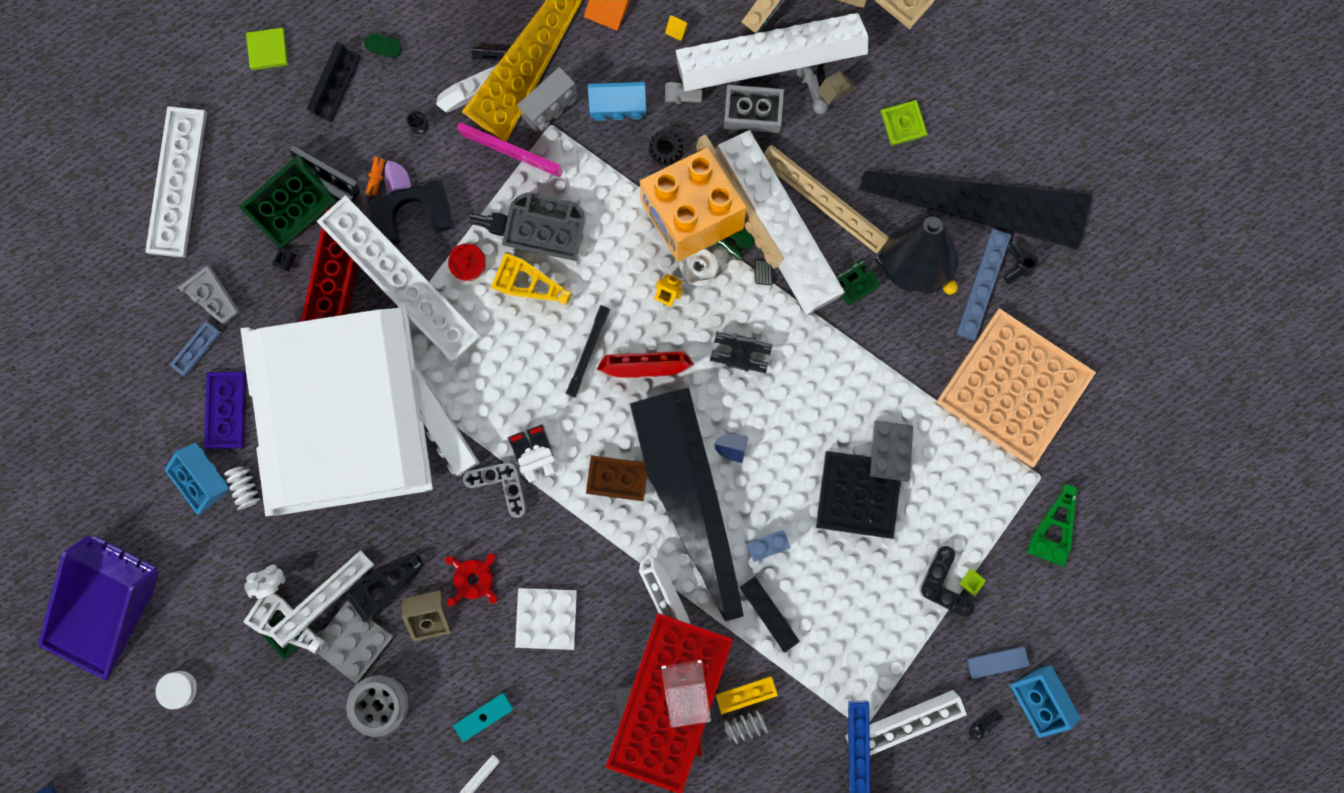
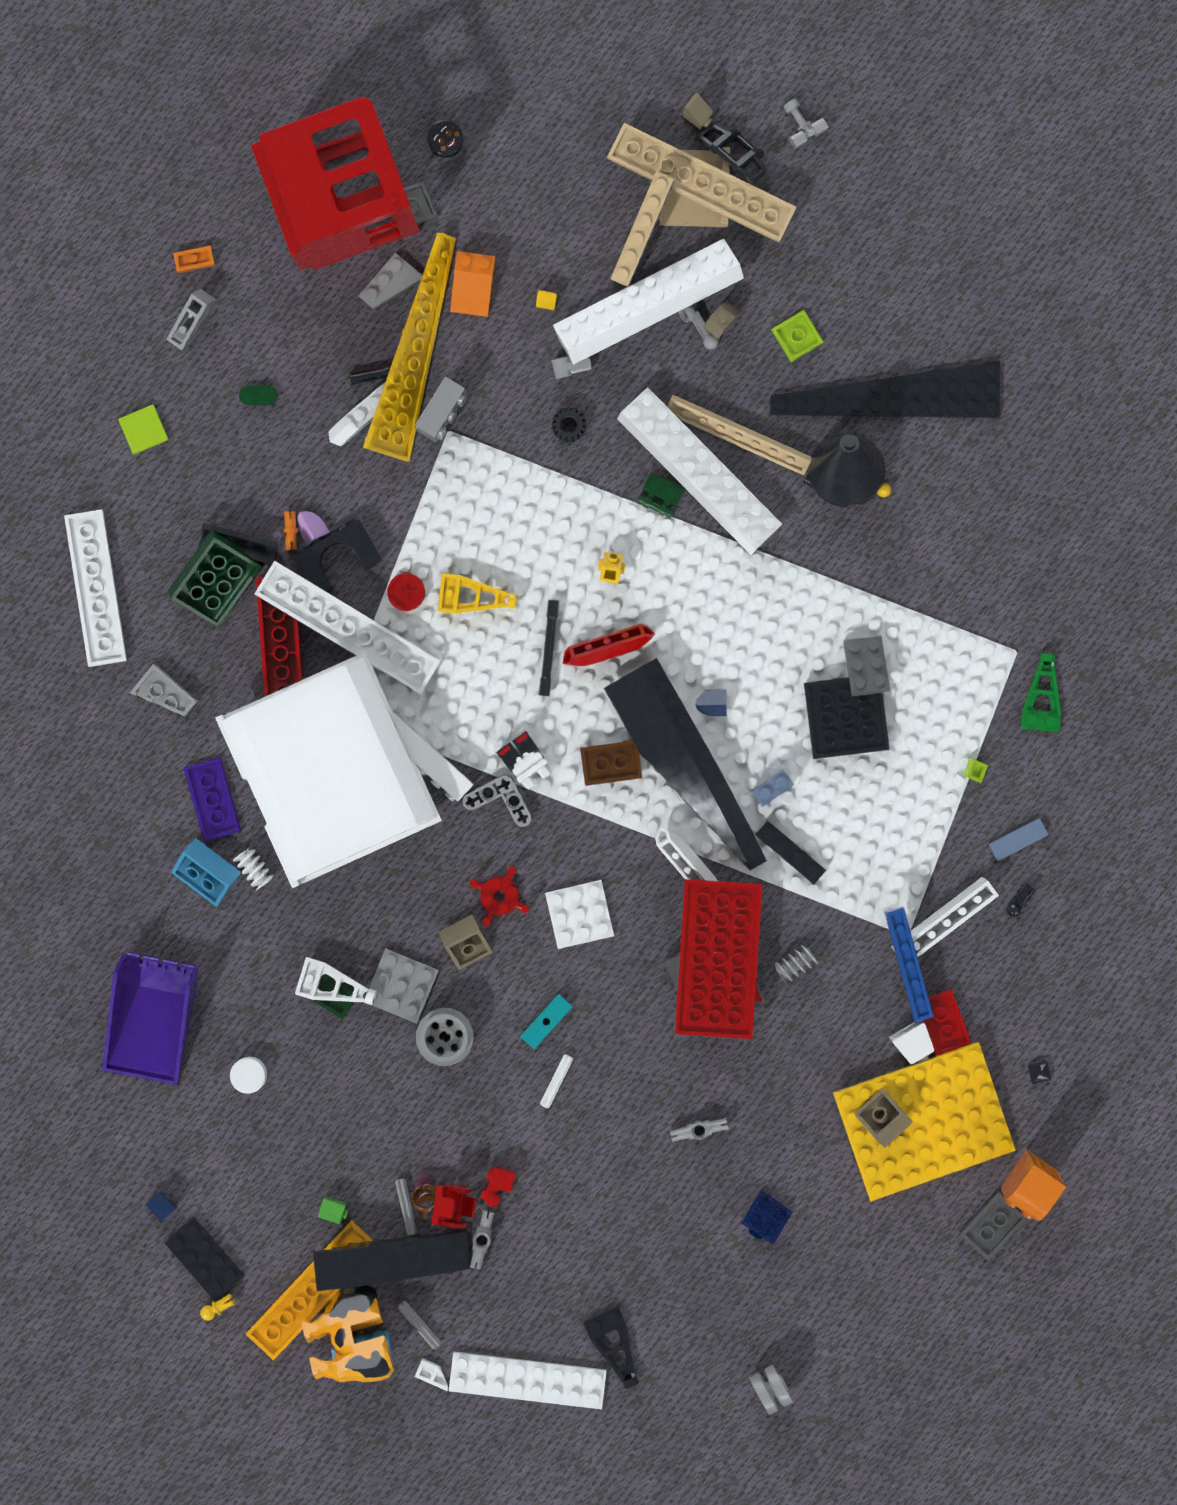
camera: 20 degrees left, 5 degrees up
(195, 349) = (165, 747): sand blue tile -> none
(264, 582) = (303, 951): white plate -> none
(284, 259) = (225, 637): black tile -> none
(321, 599) = (363, 952): white plate -> none
(326, 81) = (213, 451): black fence -> none
(363, 600) = (400, 943): black plate -> none
(414, 120) = (314, 464): black wheel -> none
(493, 223) = (423, 546): black pin -> none
(510, 150) = (417, 469): dark pink tile -> none
(545, 226) = (473, 536): dark grey plate -> none
(617, 100) = (509, 392): dark azure slope -> none
(686, 693) = (732, 946): clear slope -> none
(692, 204) = (612, 478): light orange brick -> none
(702, 277) = (638, 526): white plate -> none
(746, 695) = (788, 934): yellow plate -> none
(749, 345) = (690, 618): black pin -> none
(752, 222) = (651, 456): tan plate -> none
(753, 108) = (645, 363): light grey brick -> none
(763, 273) = (698, 524): light grey sticker -> none
(859, 287) = (795, 513): dark green plate -> none
(939, 591) = (946, 786): black beam -> none
(983, 285) = (915, 478): sand blue plate -> none
(1015, 387) = (971, 571): light nougat plate -> none
(1020, 269) = (946, 442): black axle -> none
(1045, 702) = (1071, 864): dark azure slope -> none

